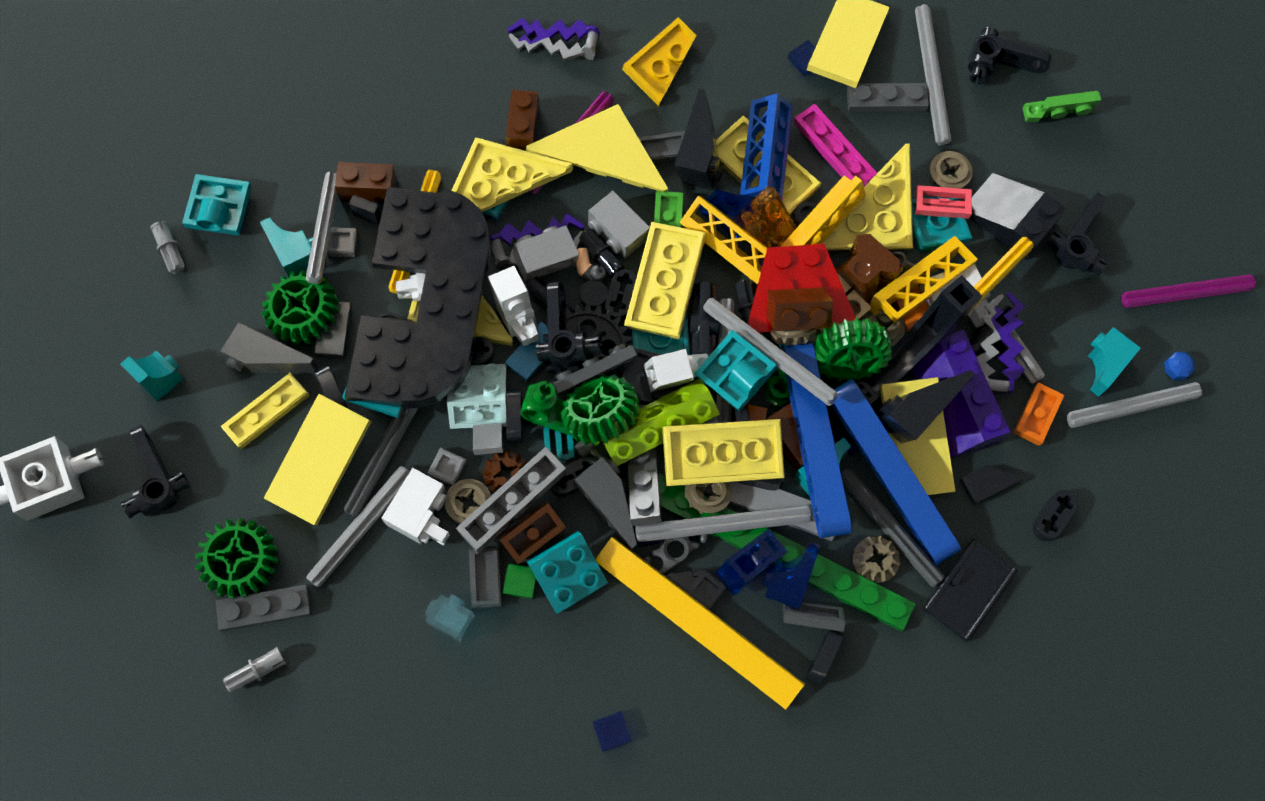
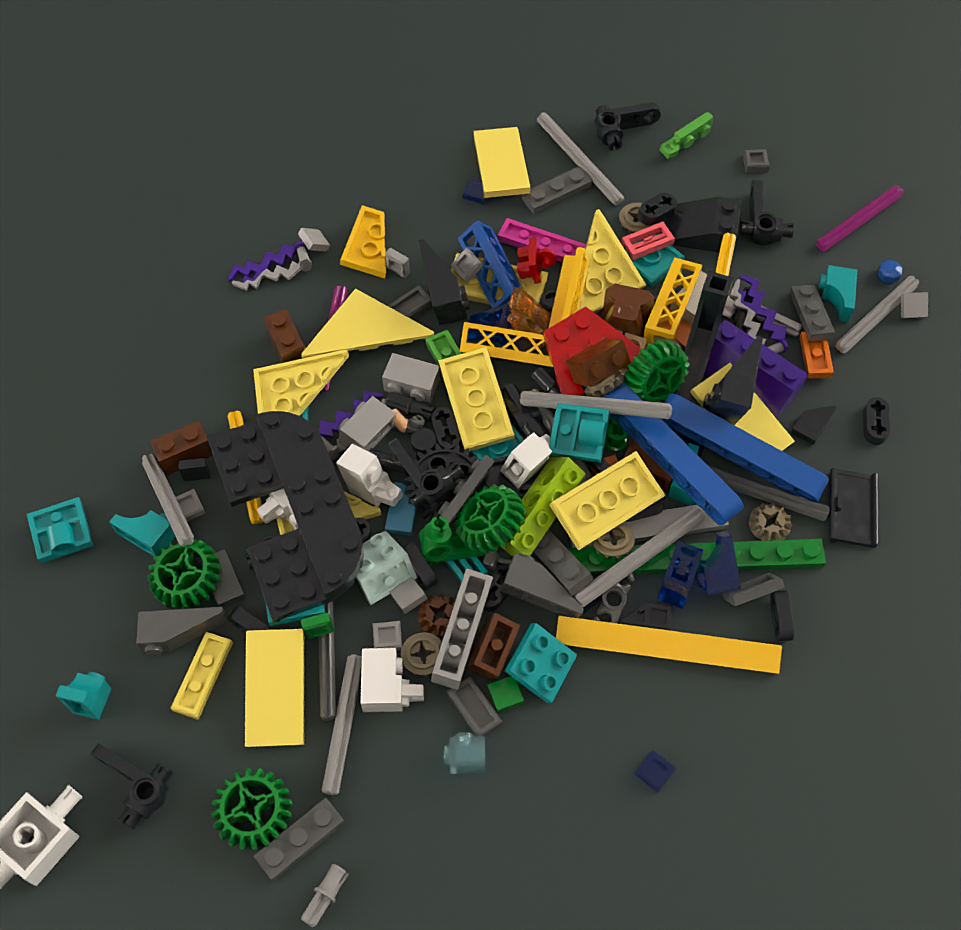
camera: 25 degrees left, 10 degrees down
(167, 247) = (35, 586): light grey axle -> none
(386, 423) = (317, 625): none -> green tile
(611, 30) = (313, 239): none -> light grey tile
(677, 96) = (397, 262): none -> light grey tile
(742, 135) = (467, 265): none -> light grey tile
(814, 165) = (533, 260): none -> red hips
(973, 167) = (653, 205): none -> black beam
(1063, 368) = (812, 313): none -> dark grey plate
(1119, 170) = (756, 160): none -> dark grey tile
(1179, 416) = (914, 304): none -> light grey tile

